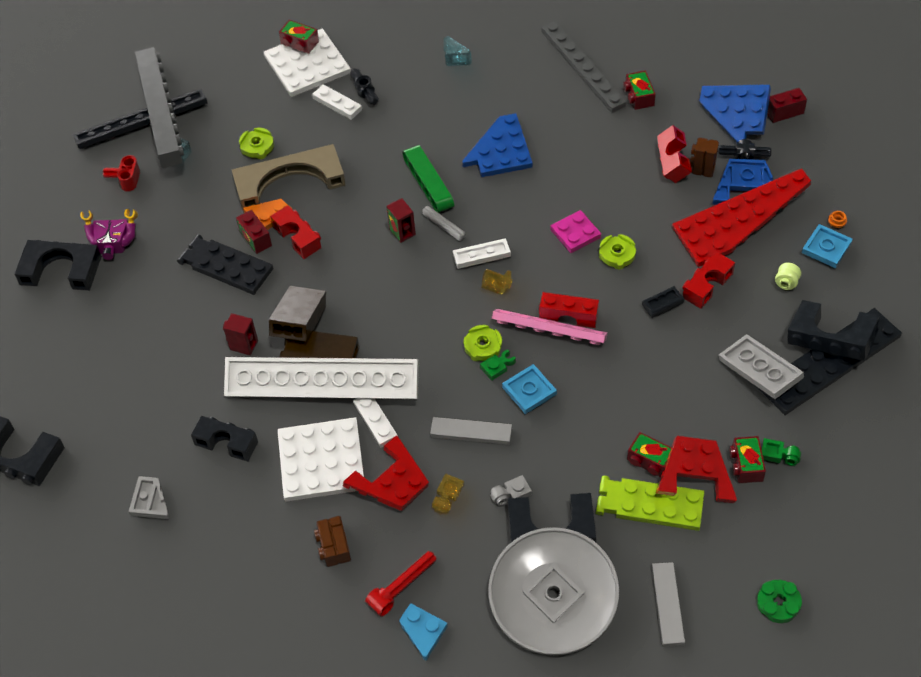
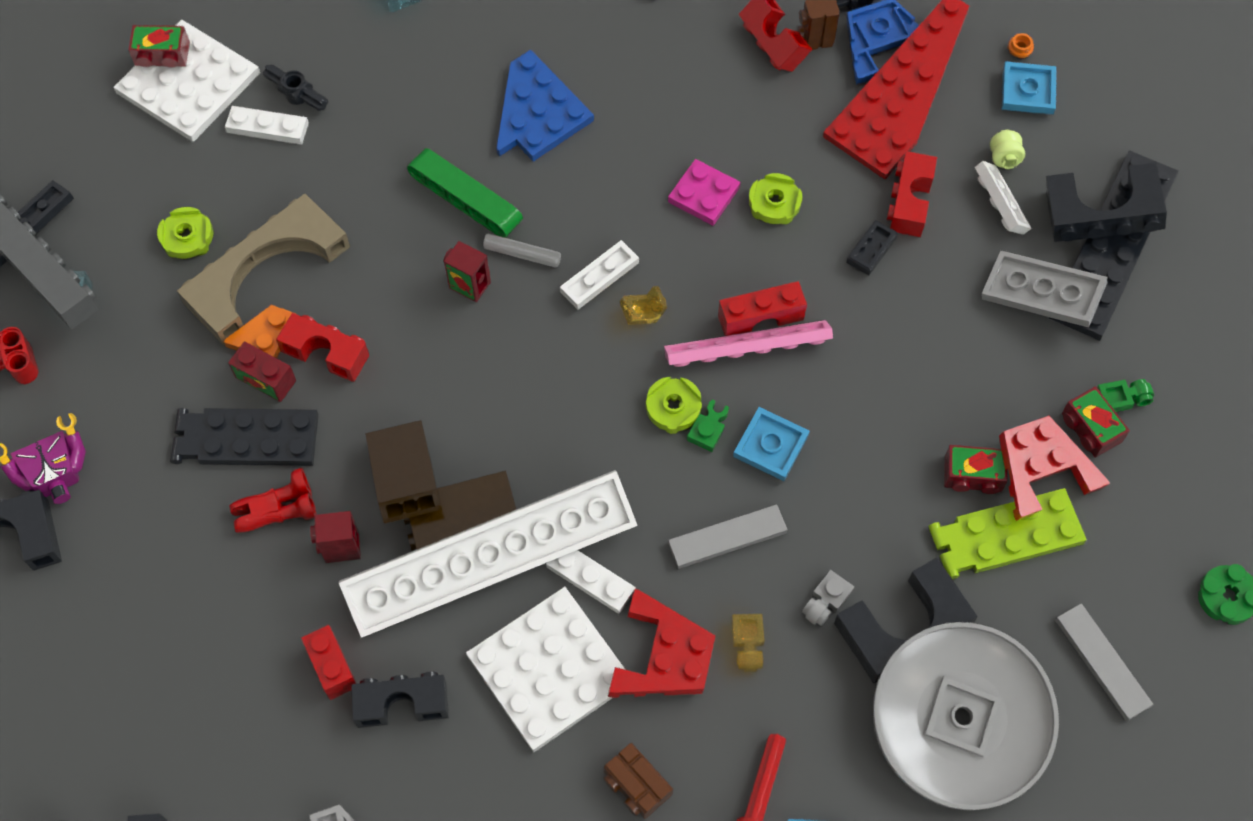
camera: 30 degrees left, 10 degrees up
(197, 399) = (329, 662): none -> red brick
(215, 305) = (268, 508): none -> red piece
(767, 304) = (1002, 198): none -> white plate

